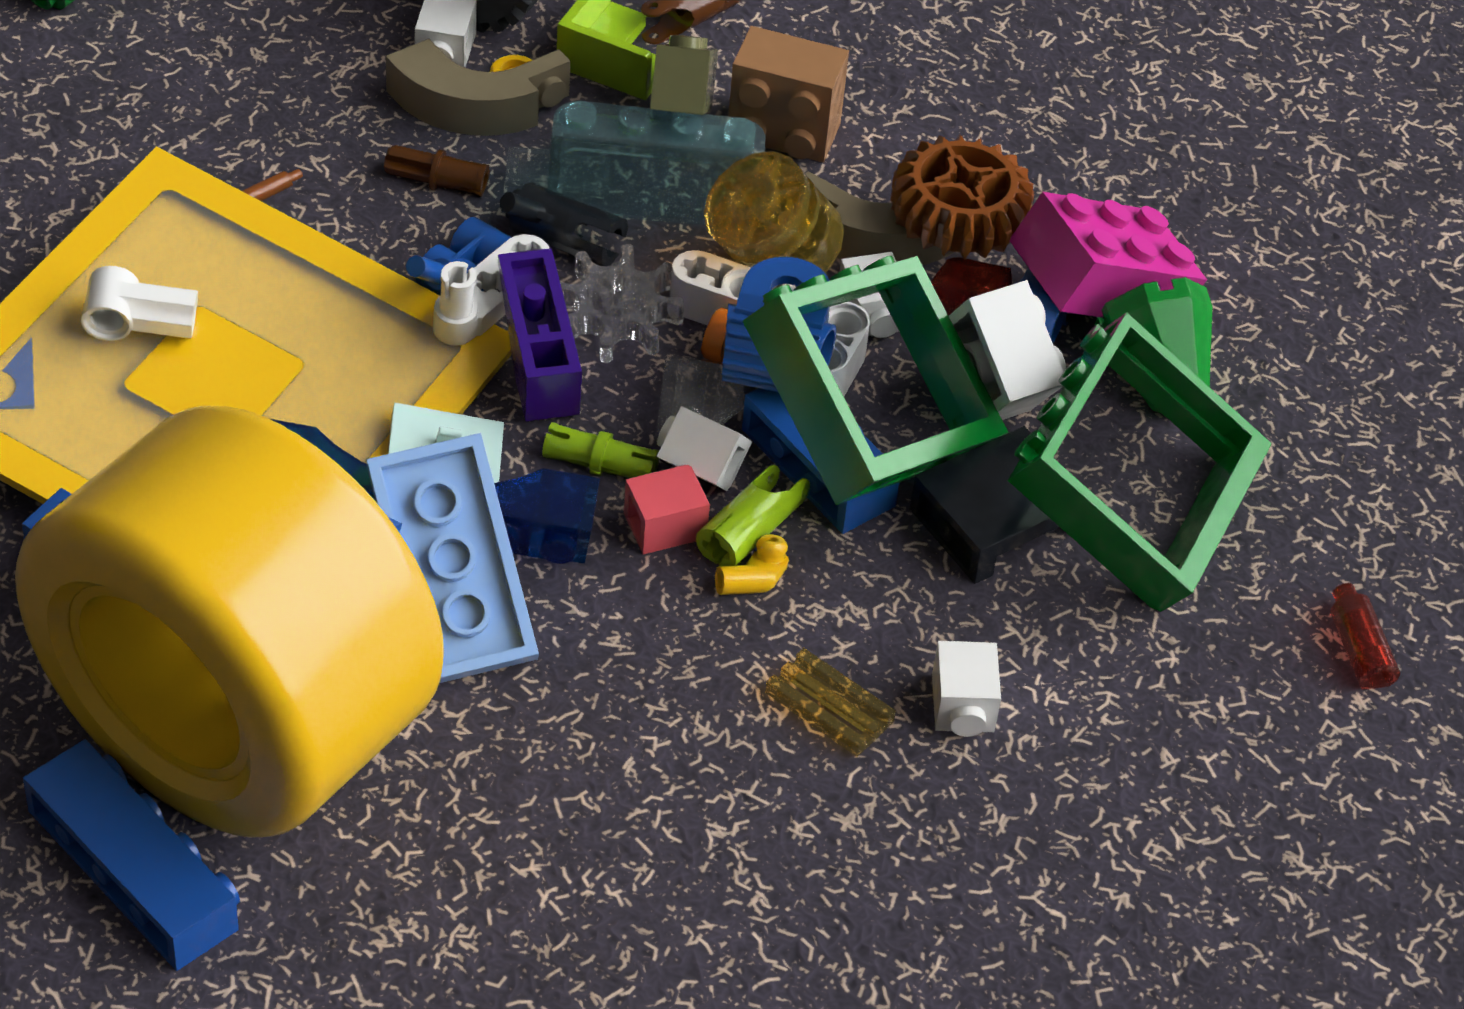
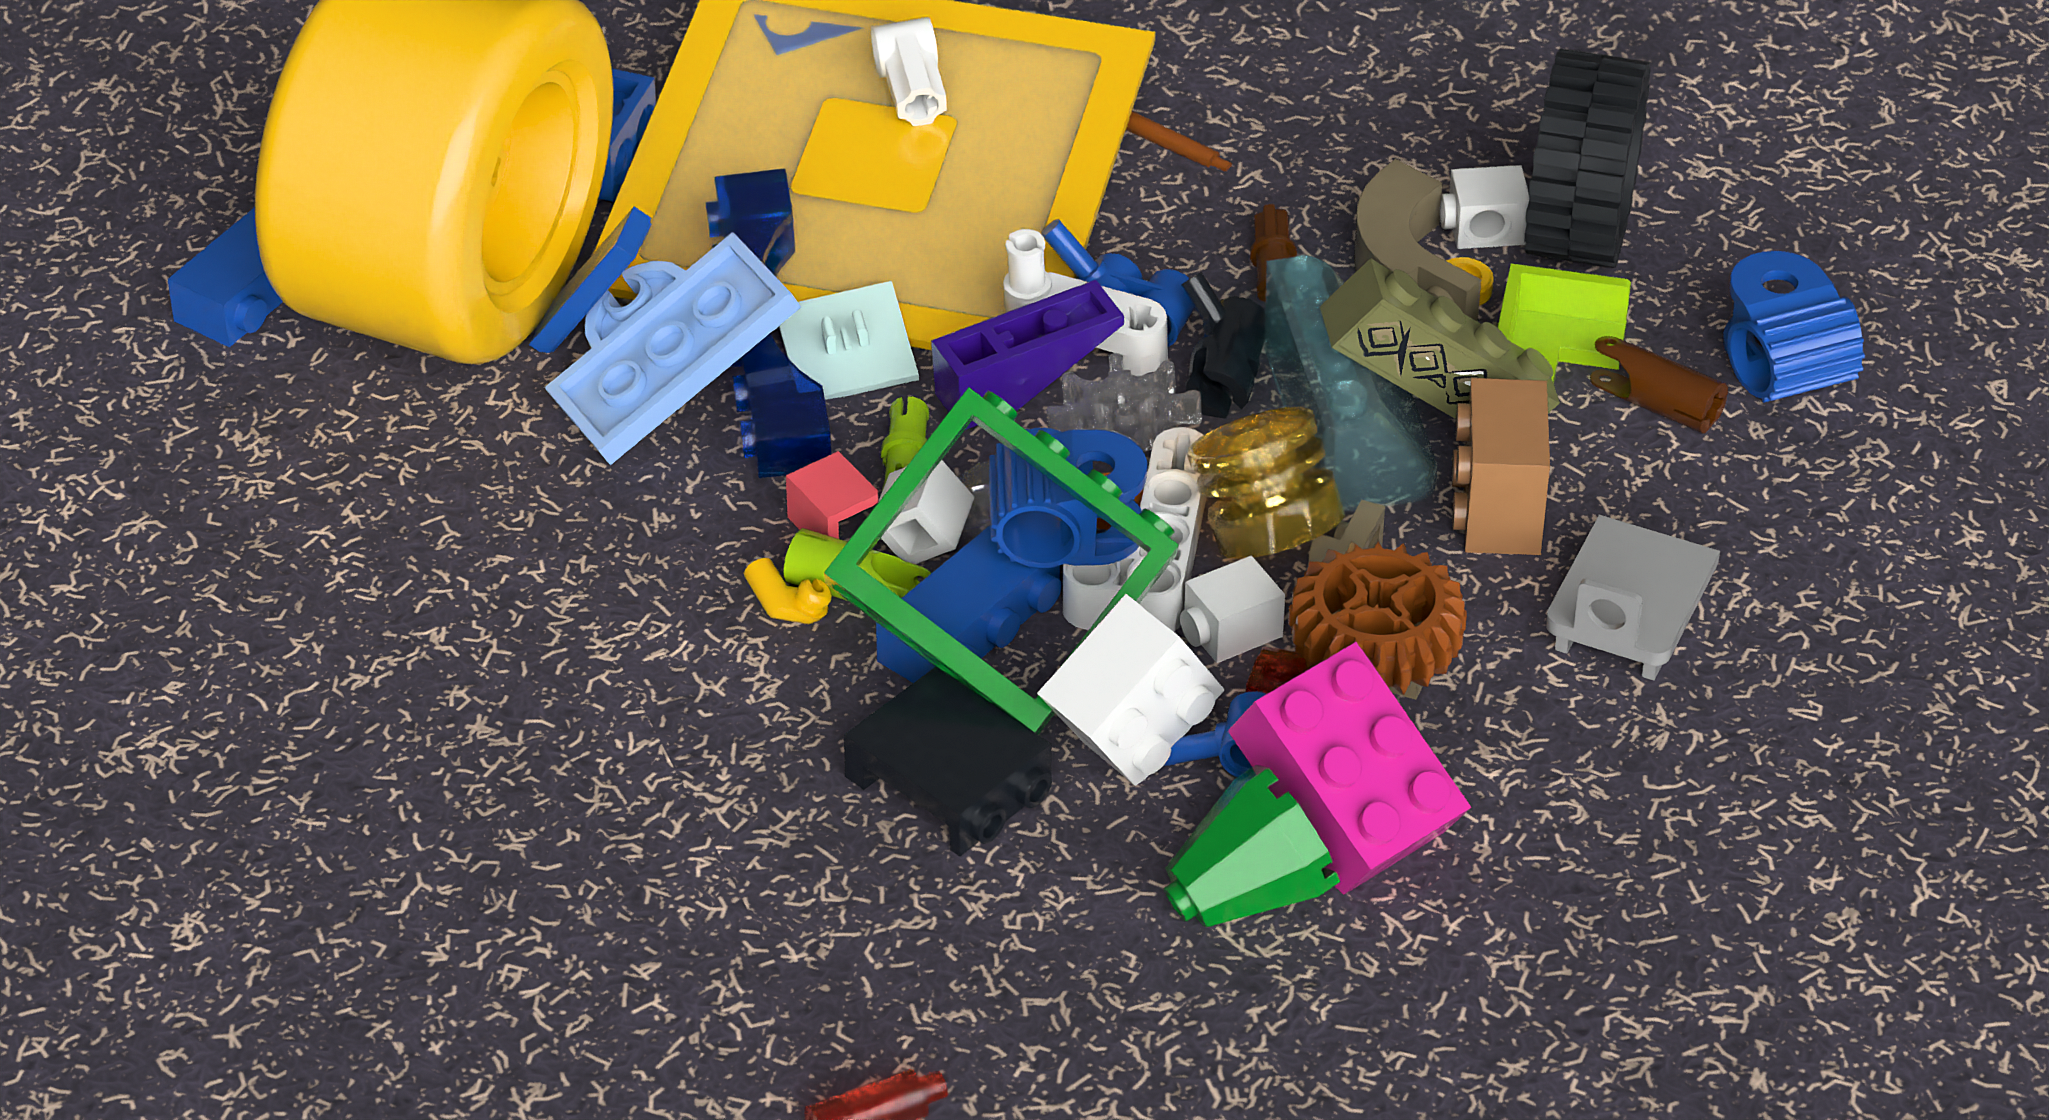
camera: 80 degrees right, 5 degrees down
(837, 695) = (669, 663): clear yellow tile -> none
(927, 78) = (1630, 593): none -> light grey piece
(966, 687) = (664, 771): white brick -> none
(1190, 407) = (1011, 720): green window -> none

